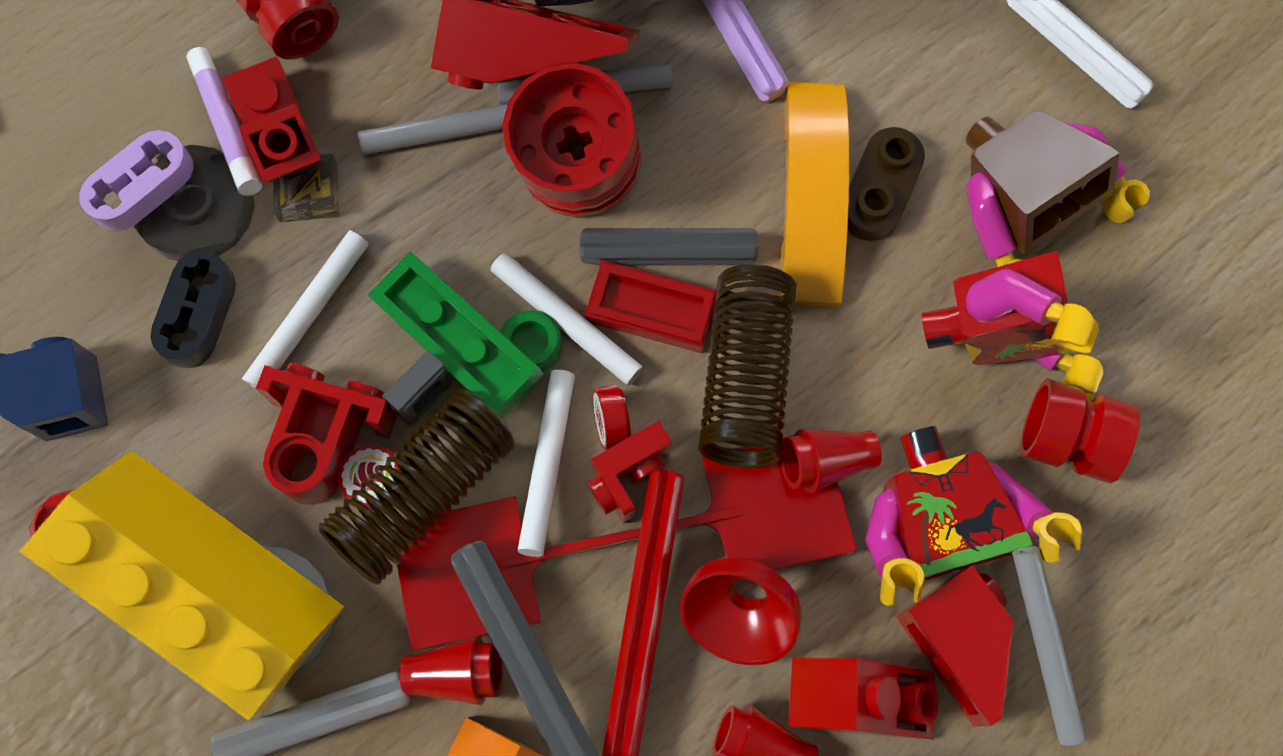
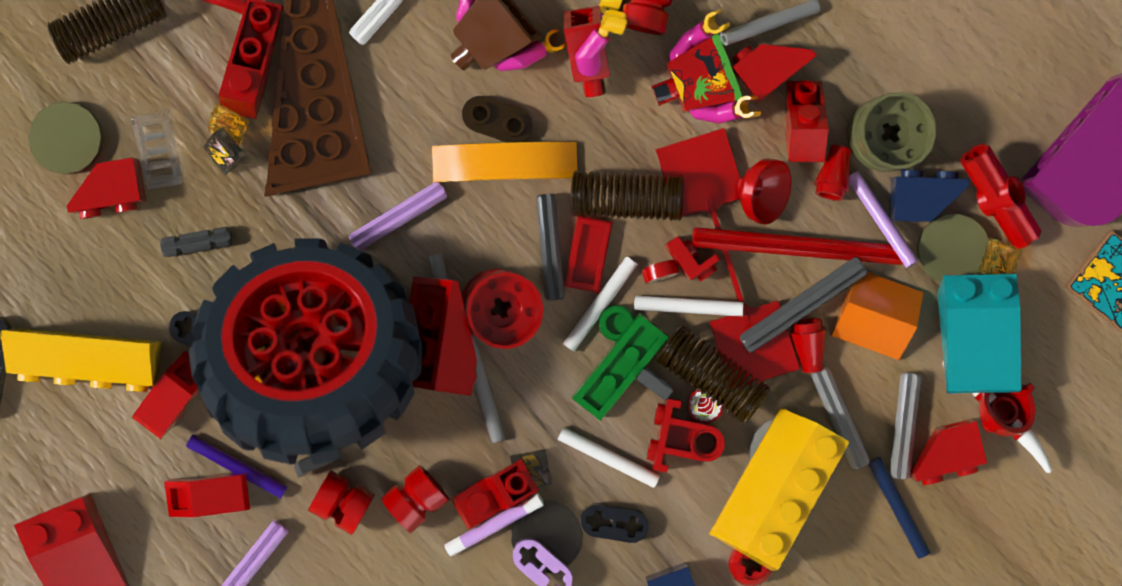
camera: 90 degrees left, 15 degrees up
(826, 457) = (676, 149): red cone -> none

